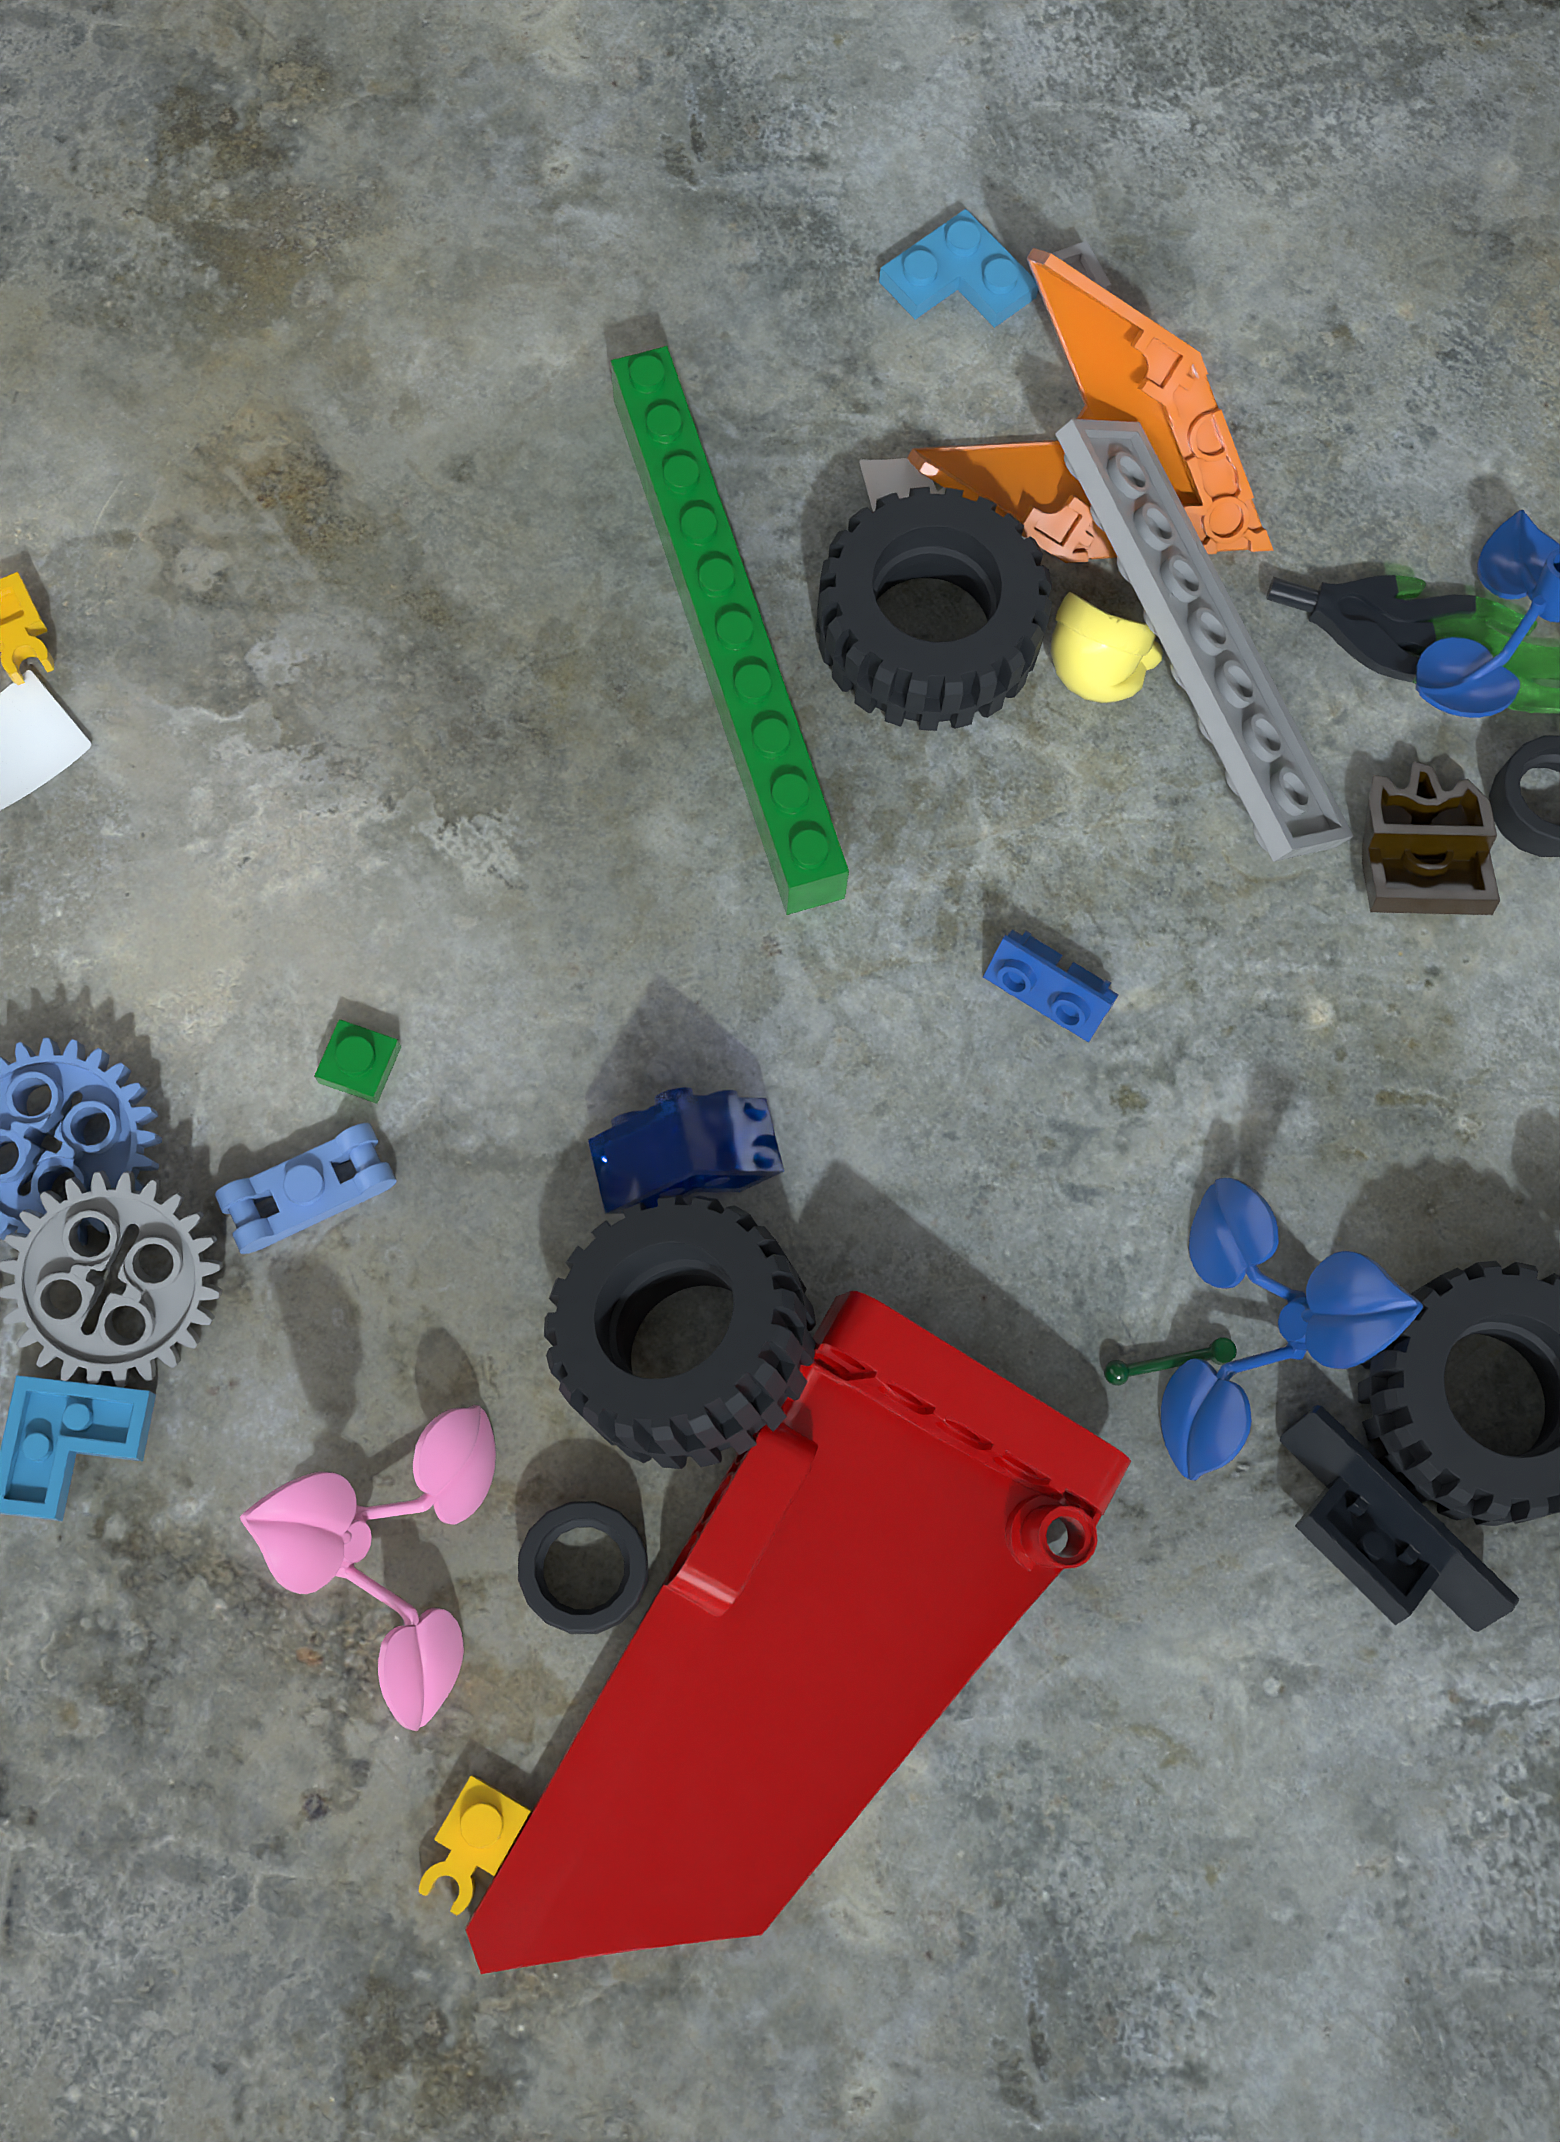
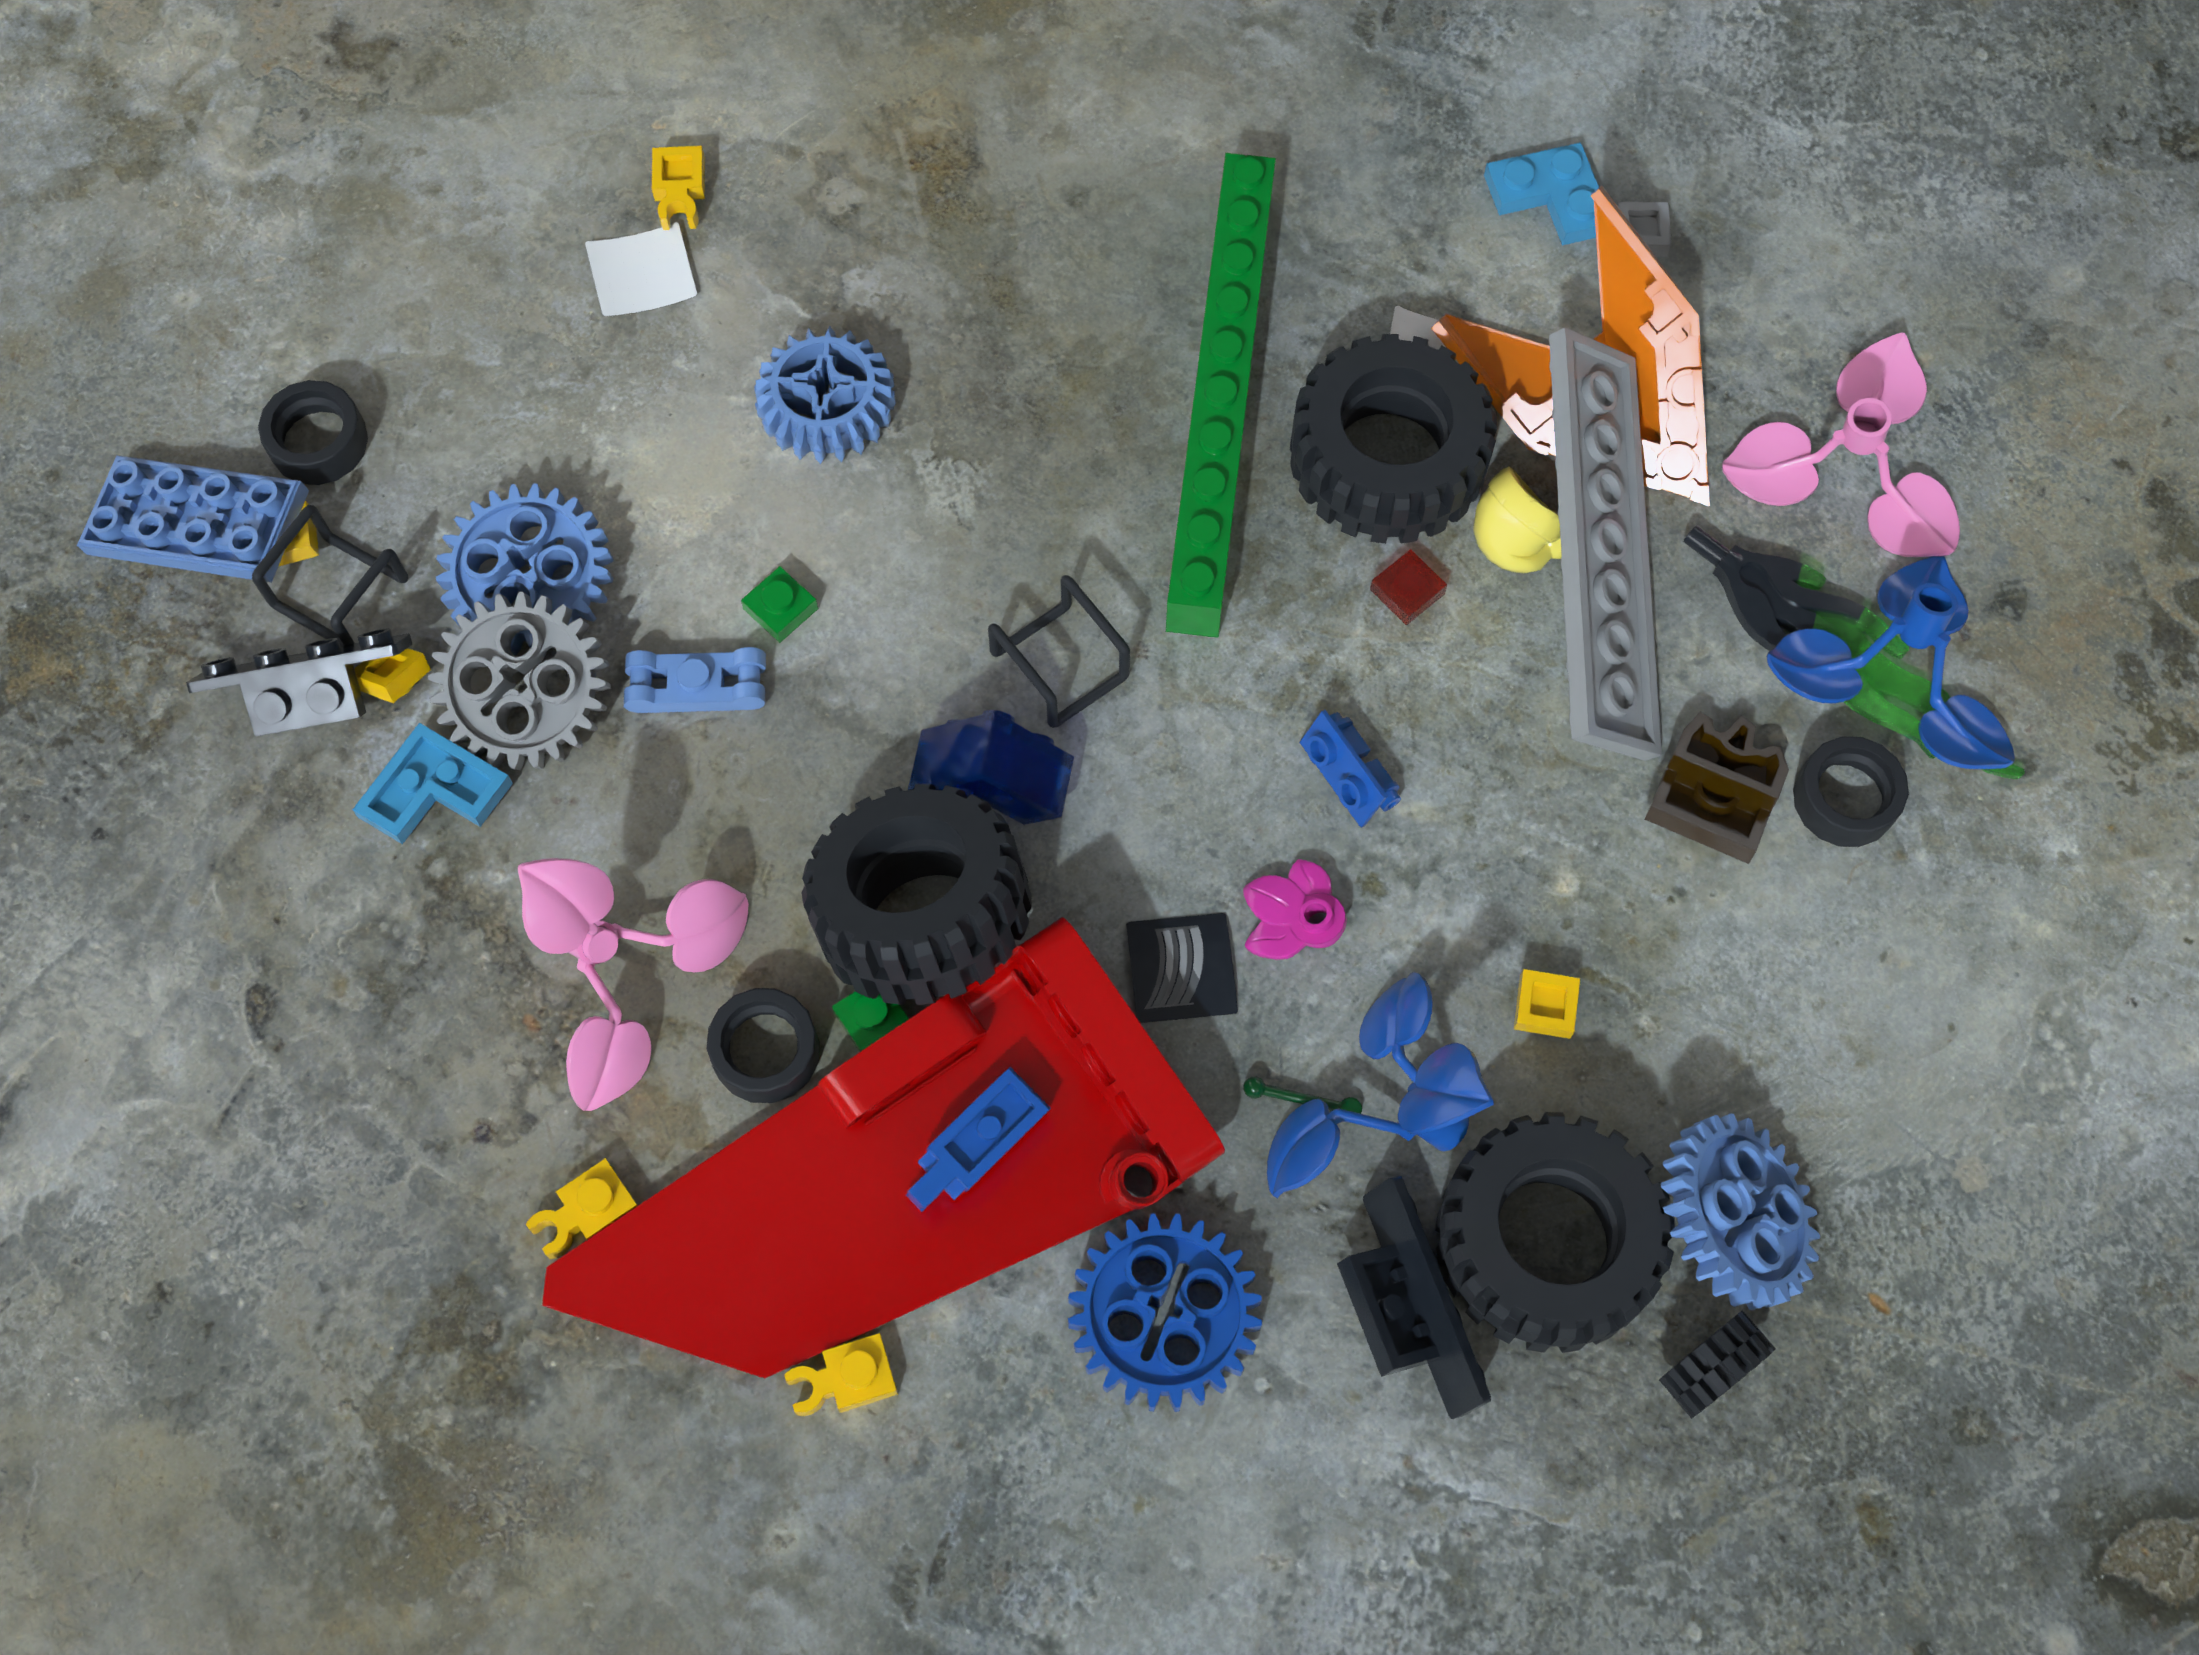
camera: 30 degrees right, 5 degrees down
(247, 813) = (849, 410): none -> medium blue gear
(623, 1001) = (1001, 643): none -> black piece
(683, 1490) = (867, 1018): none -> green plate
(854, 1885) = (854, 1375): none -> yellow plate
(865, 1567) = (978, 1139): none -> blue hinge
(979, 1275) = (1181, 968): none -> black sticker
(1016, 762) = (1408, 587): none -> clear red plate
(1058, 1165) = (1285, 910): none -> dark pink plate
(1207, 1658) = (1213, 1331): none -> blue gear
(1367, 1150) = (1547, 1004): none -> yellow plate
(1389, 354) = (1876, 390): none -> bright pink plant

